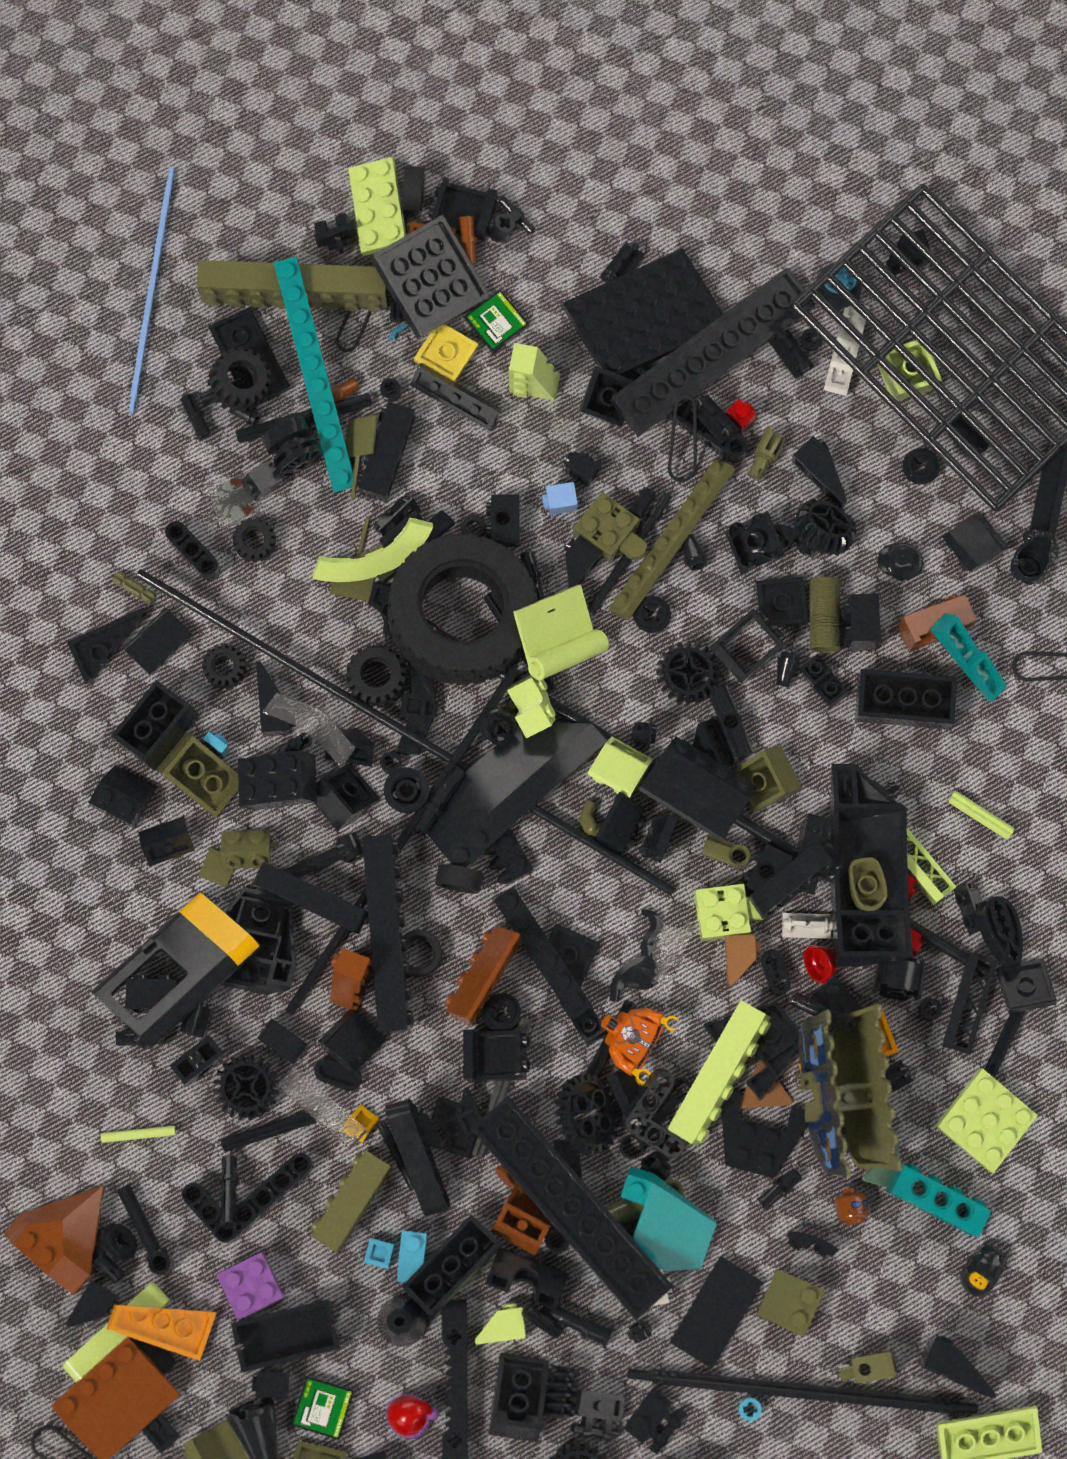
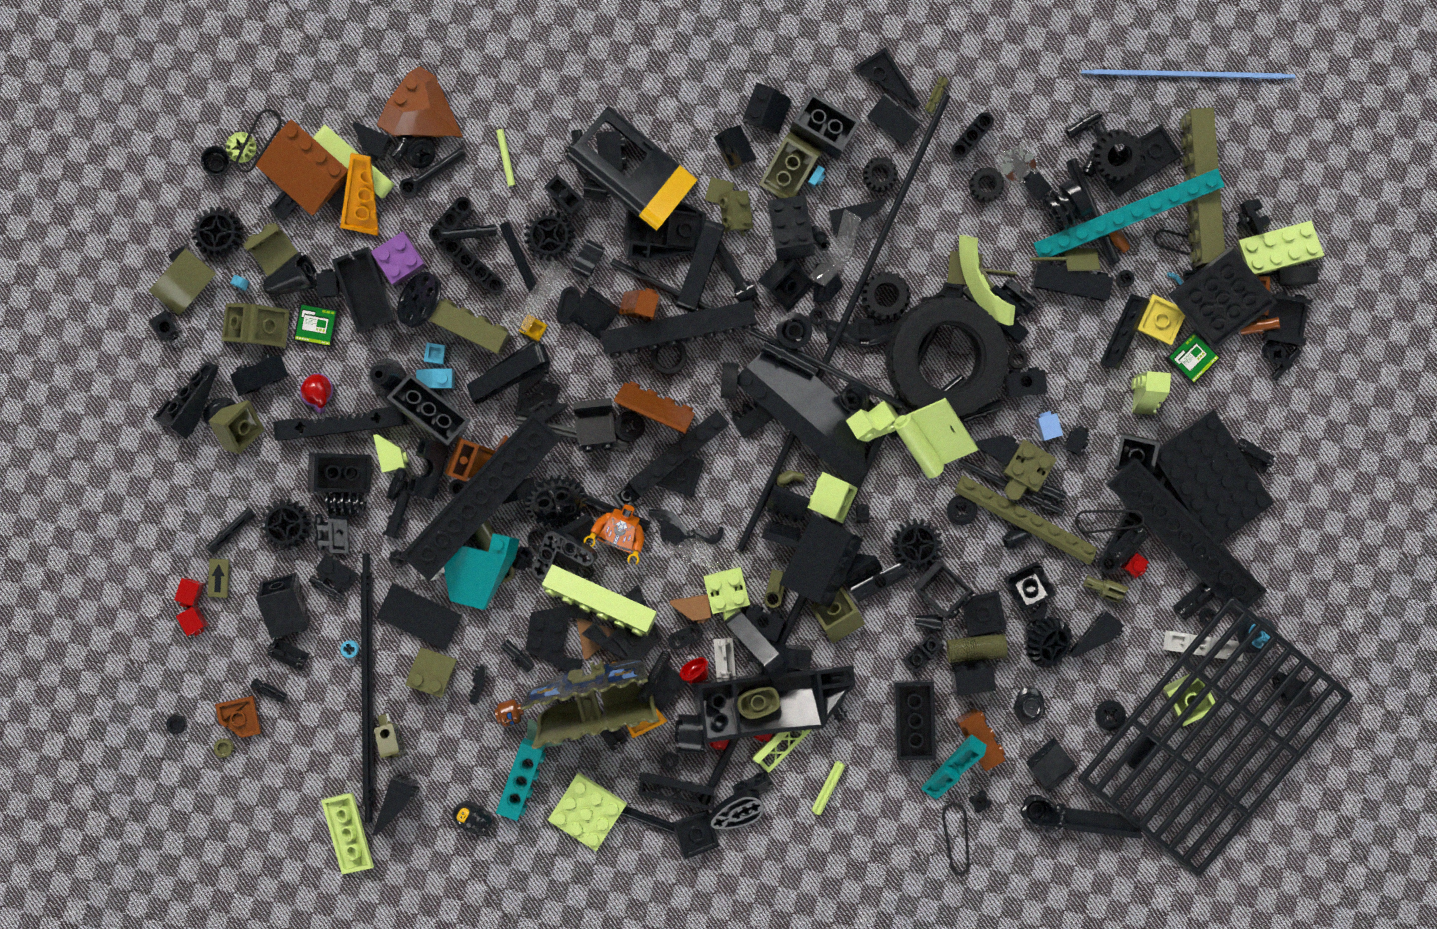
camera: 90 degrees right, 10 degrees up
(307, 1263) = (419, 299): none -> black wedge
(1016, 626) = (978, 807): none -> black plate

